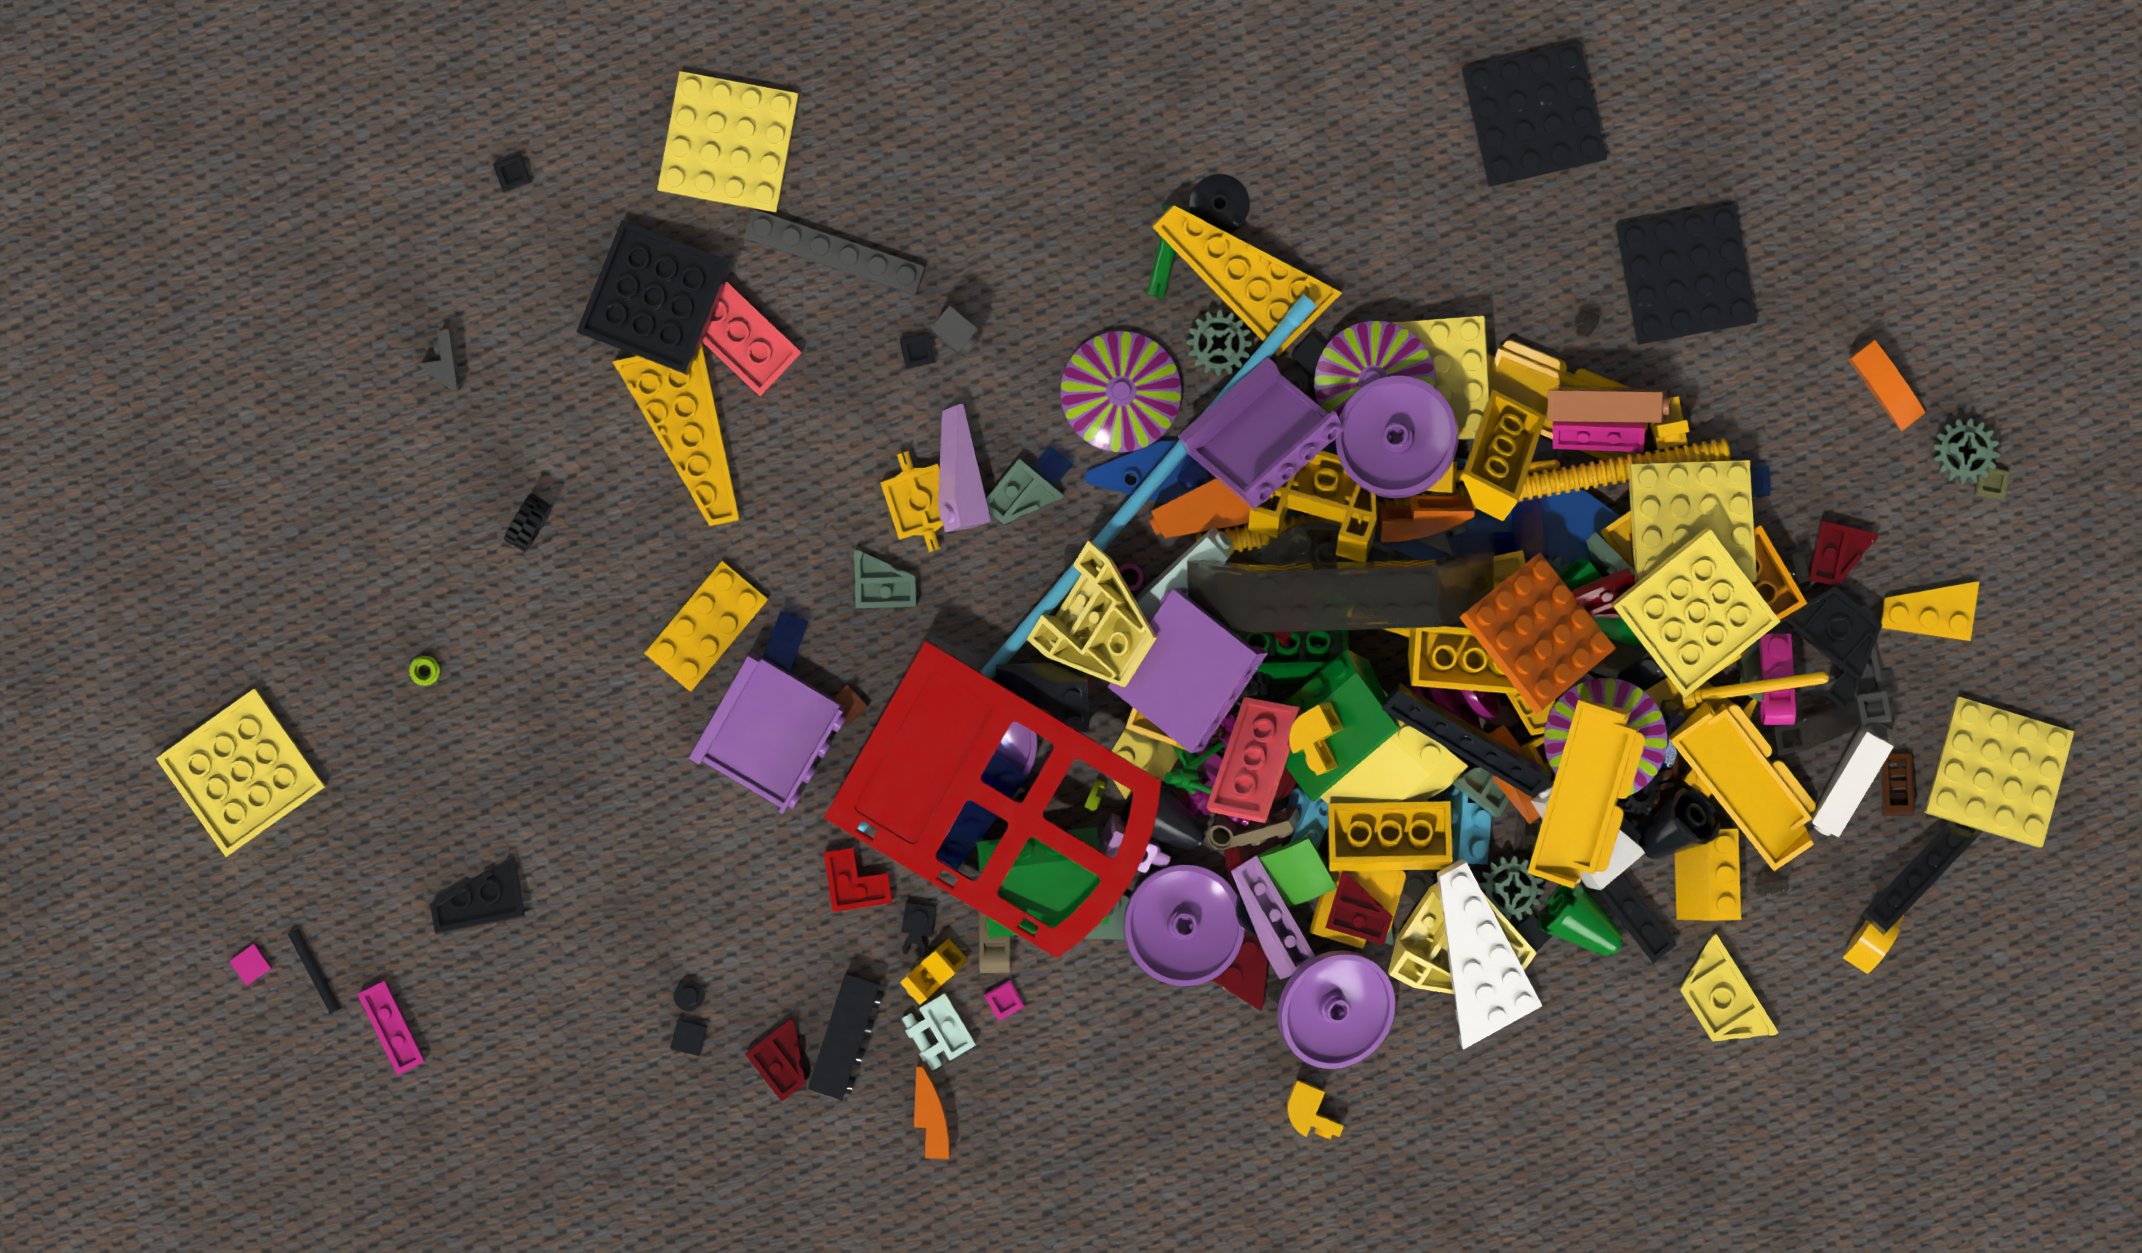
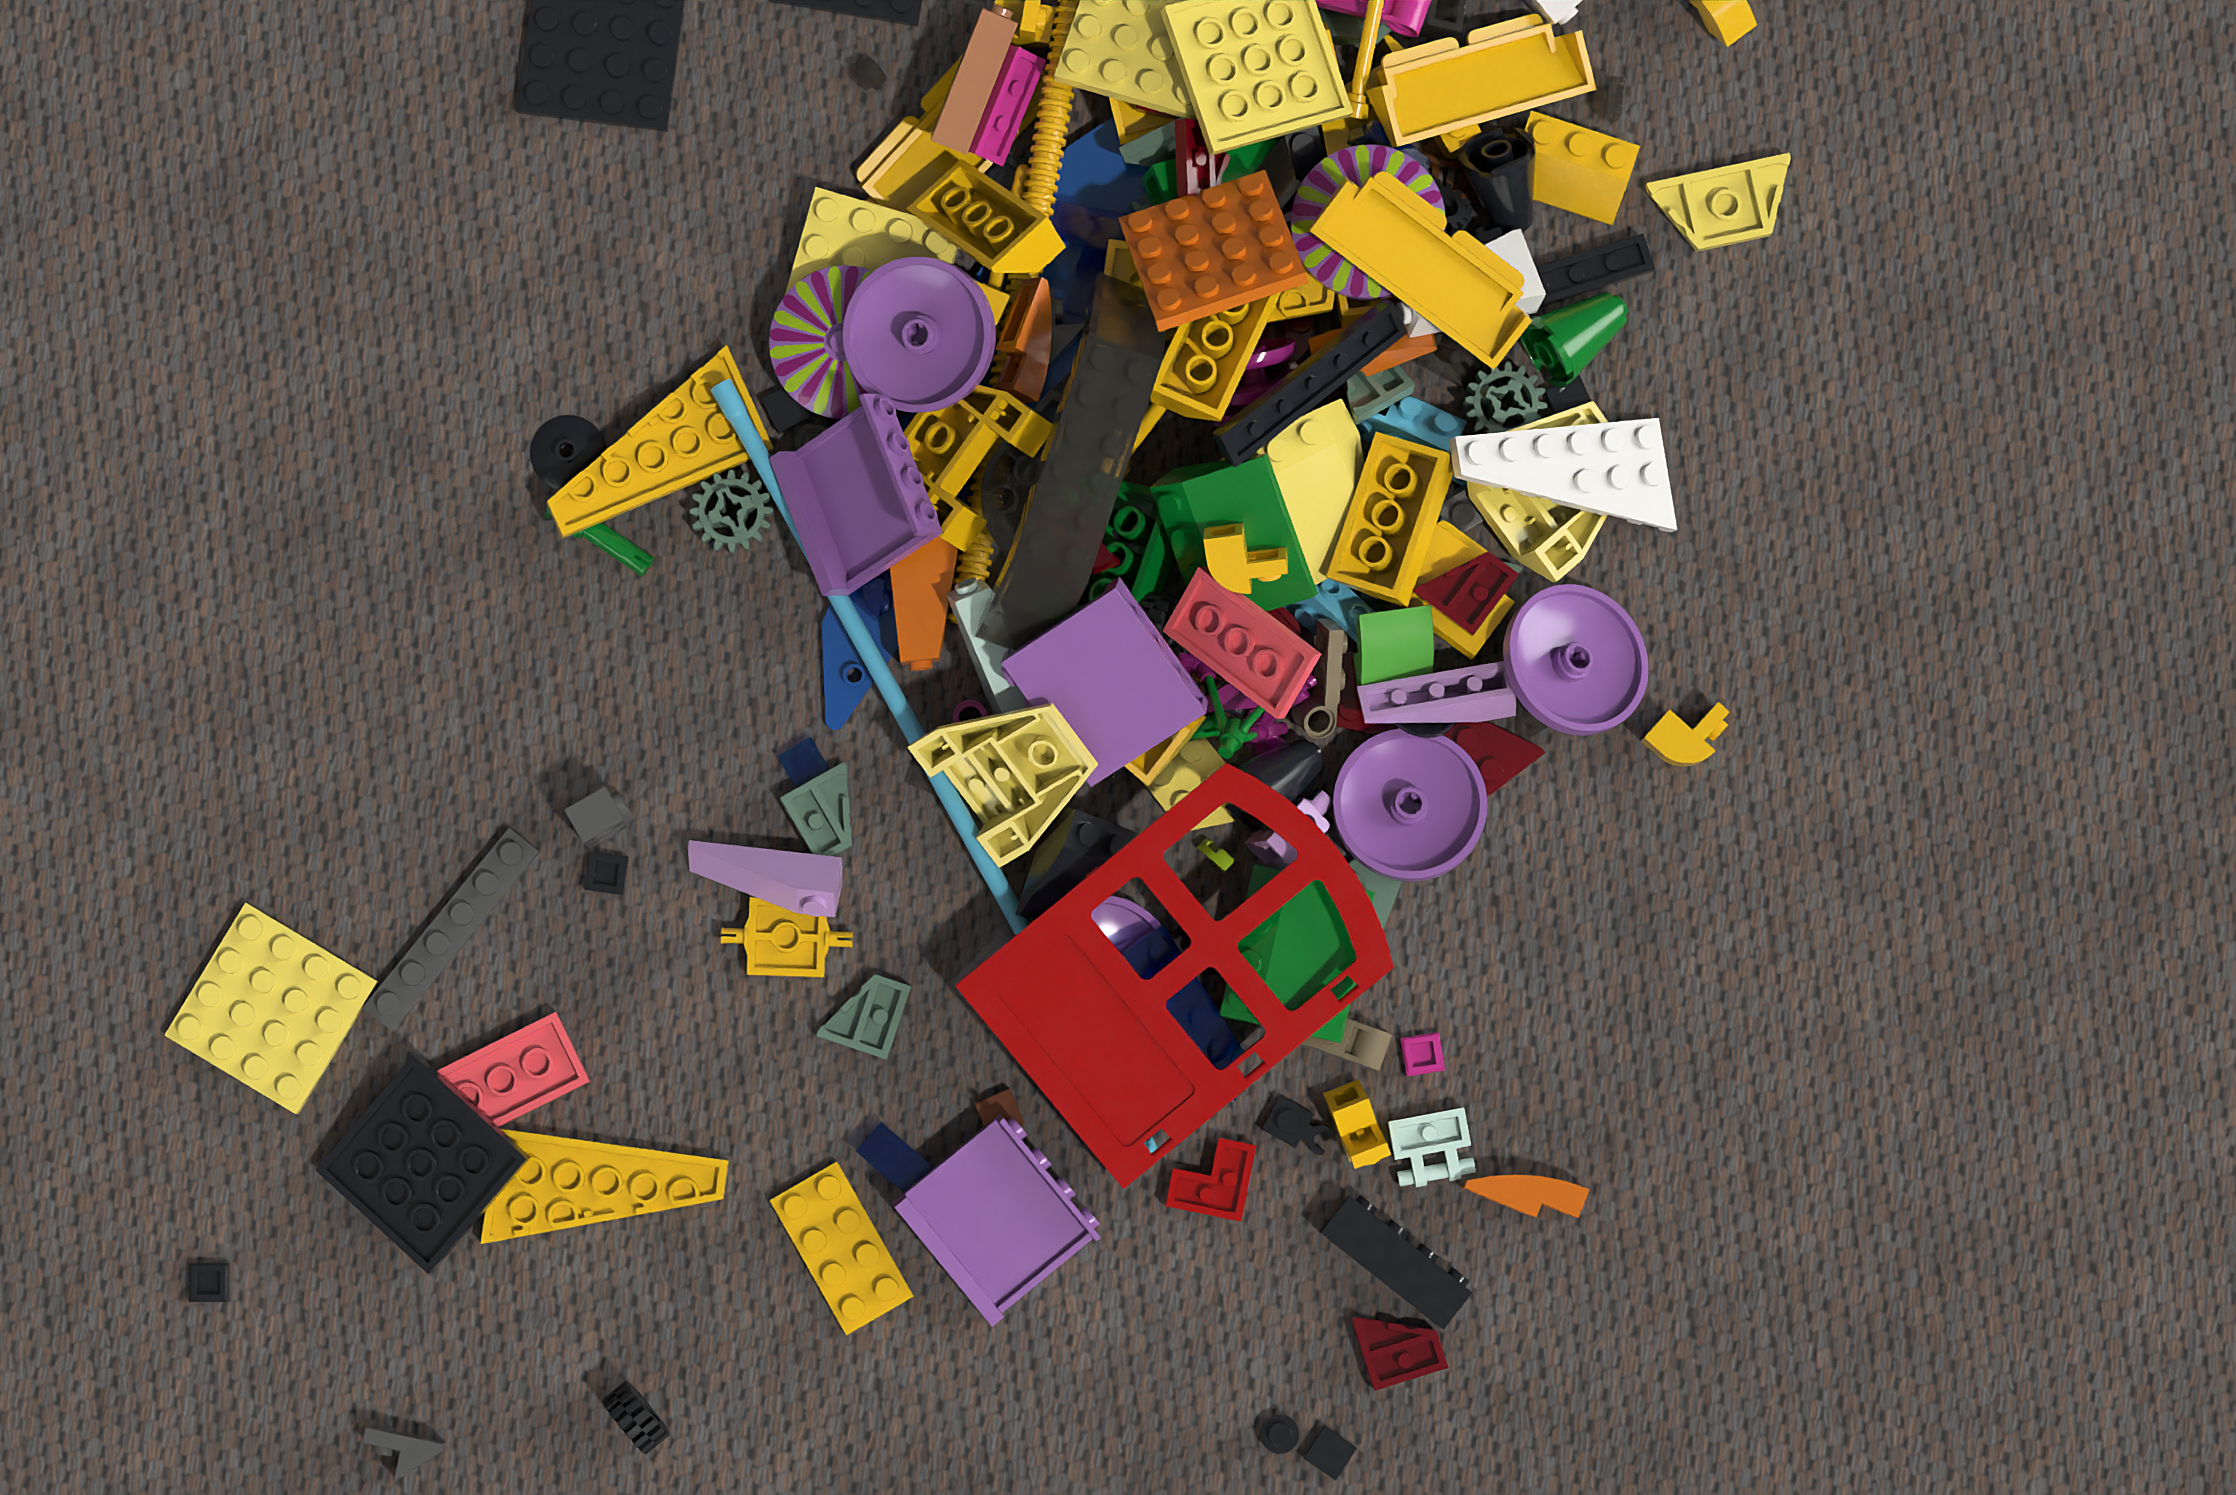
camera: 75 degrees left, 5 degrees down
(1120, 391) = (746, 649): dish -> none

